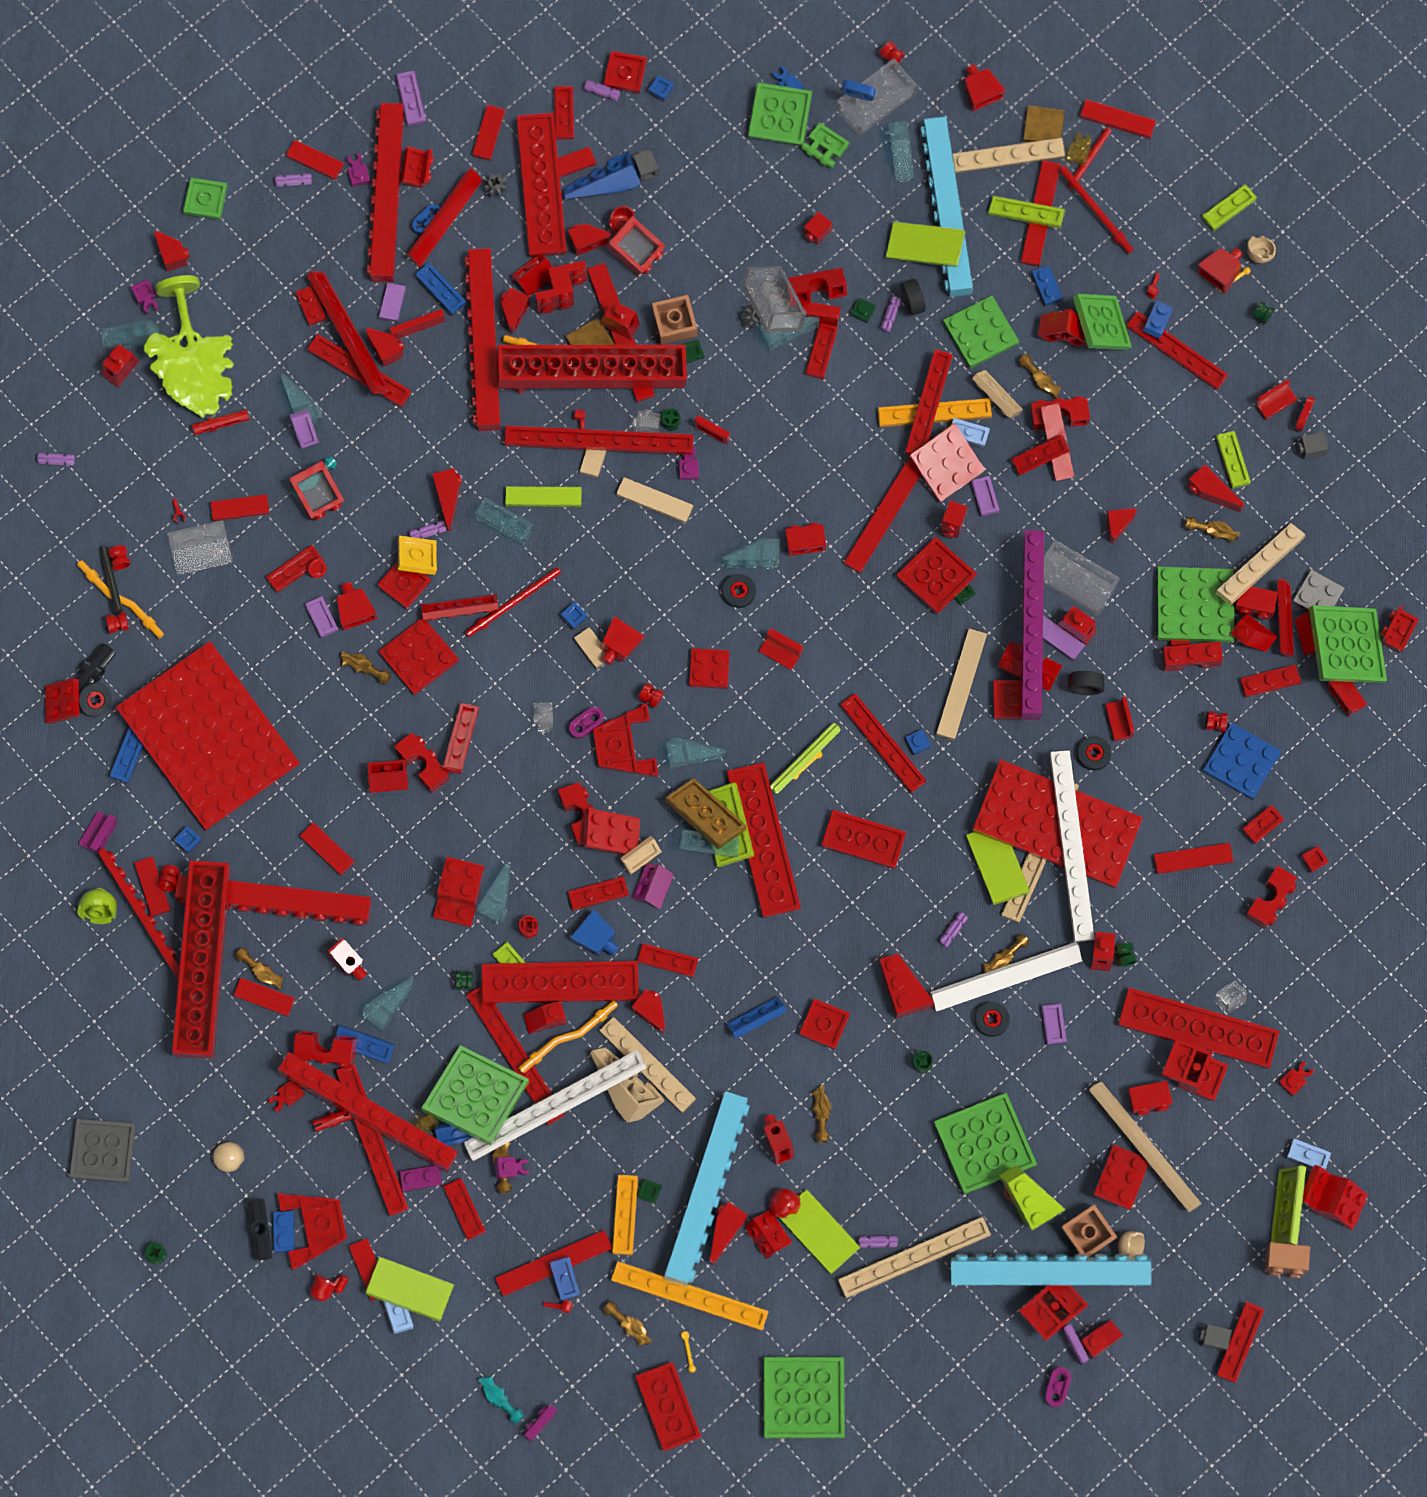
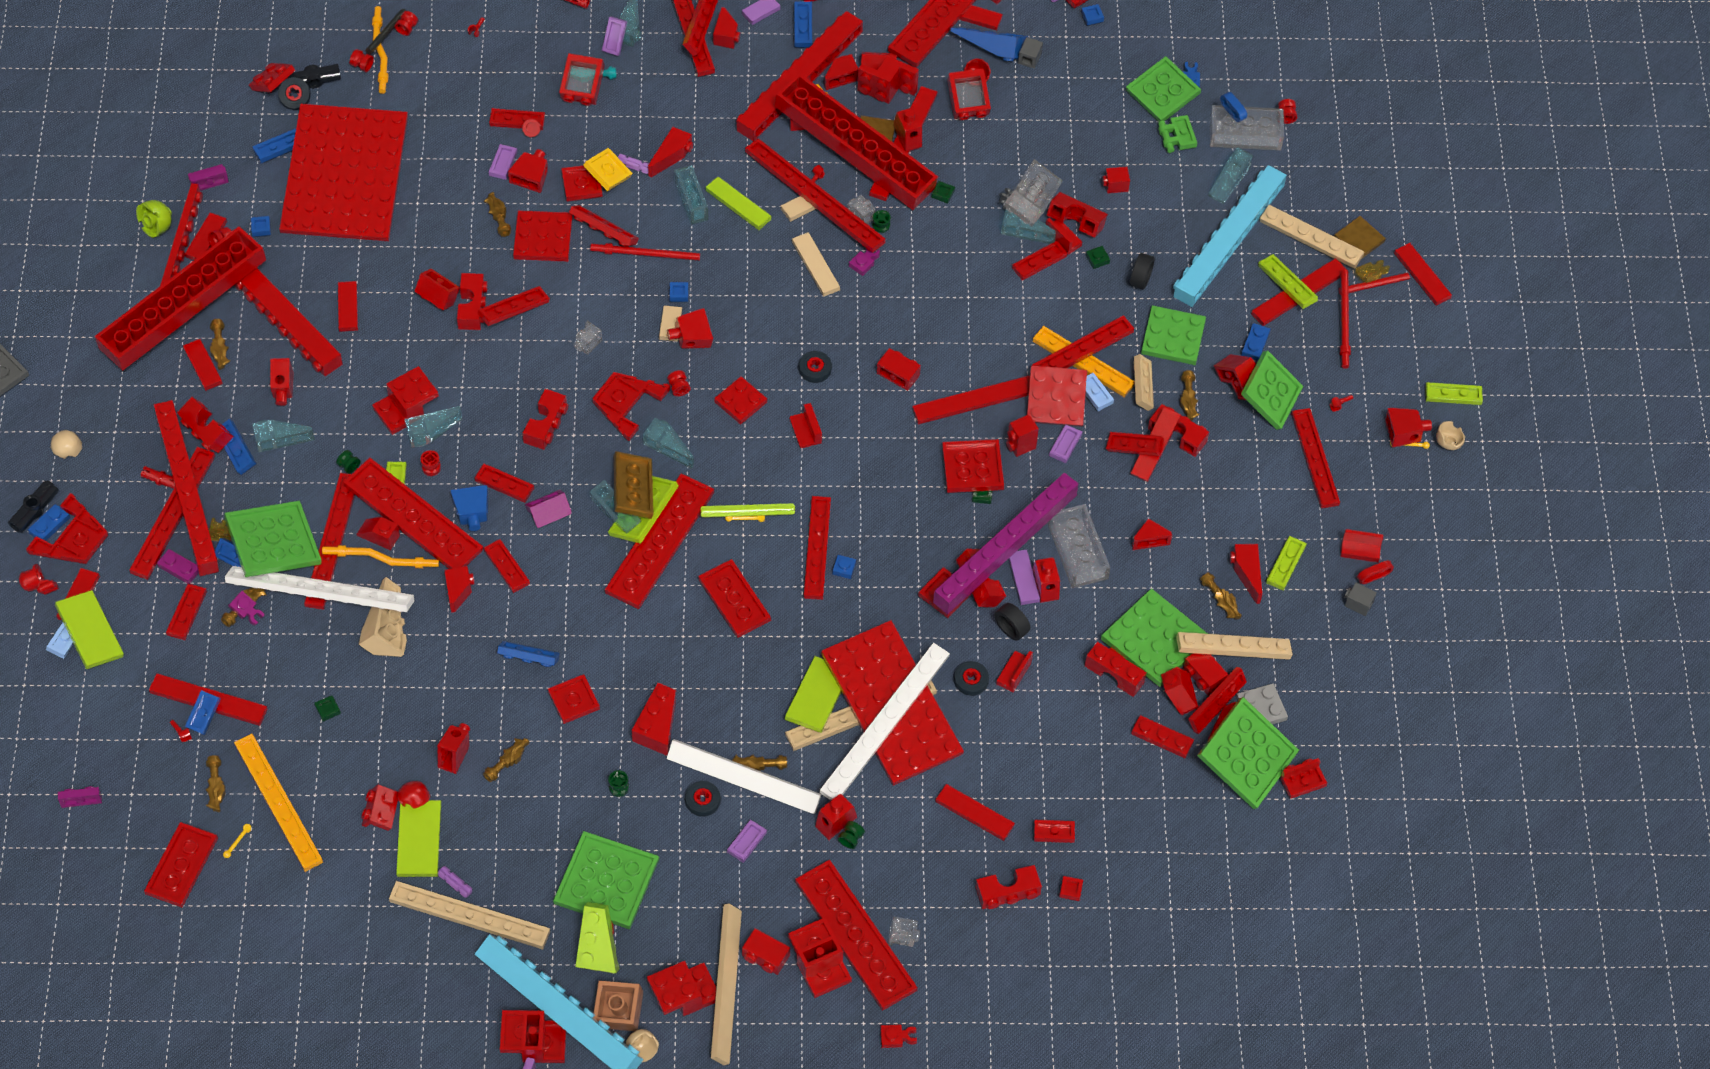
camera: 40 degrees right, 15 degrees down
(200, 547) = (467, 56): clear slope -> none
(240, 507) = (521, 55): red tile -> none
(289, 1094) = (149, 439): red plate -> none
(418, 324) = (763, 33): red tile -> none
(496, 1396) = (69, 754): teal piece -> none
(585, 722) = (613, 364): magenta plate -> none
(587, 238) = (938, 65): red slope -> none
(610, 831) = (553, 446): red plate -> none
(625, 1215) = (292, 708): light orange plate -> none
(641, 855) = (560, 479): tan tile -> none
(655, 1071) = (417, 624): tan plate -> none
(674, 319) = (949, 158): nougat brick -> none
(706, 1188) = (366, 736): medium azure brick -> none
(712, 429) = (904, 249): red tile -> none
(727, 1225) = (353, 777): red slope -> none
(759, 553) = (854, 351): clear light blue slope -> none
(804, 1397) = (284, 943): bright green plate -> none
(891, 313) = (1116, 273): medium lavender axle -> none
(925, 244) = (1187, 244): lime tile -> none
(953, 929) = (738, 713): medium lavender axle -> none
(961, 684) = (917, 553): tan tile -> none
(982, 88) = (1334, 179): red torso -> none
(1158, 319) = (1320, 424): blue plate -> none
(1216, 721) = (1090, 729): red wheel -> none
(1242, 761) = (1083, 775): blue plate -> none
(1263, 312) = (1410, 480): dark green wheel -> none
(1346, 696) = (1215, 794): red panel -> none

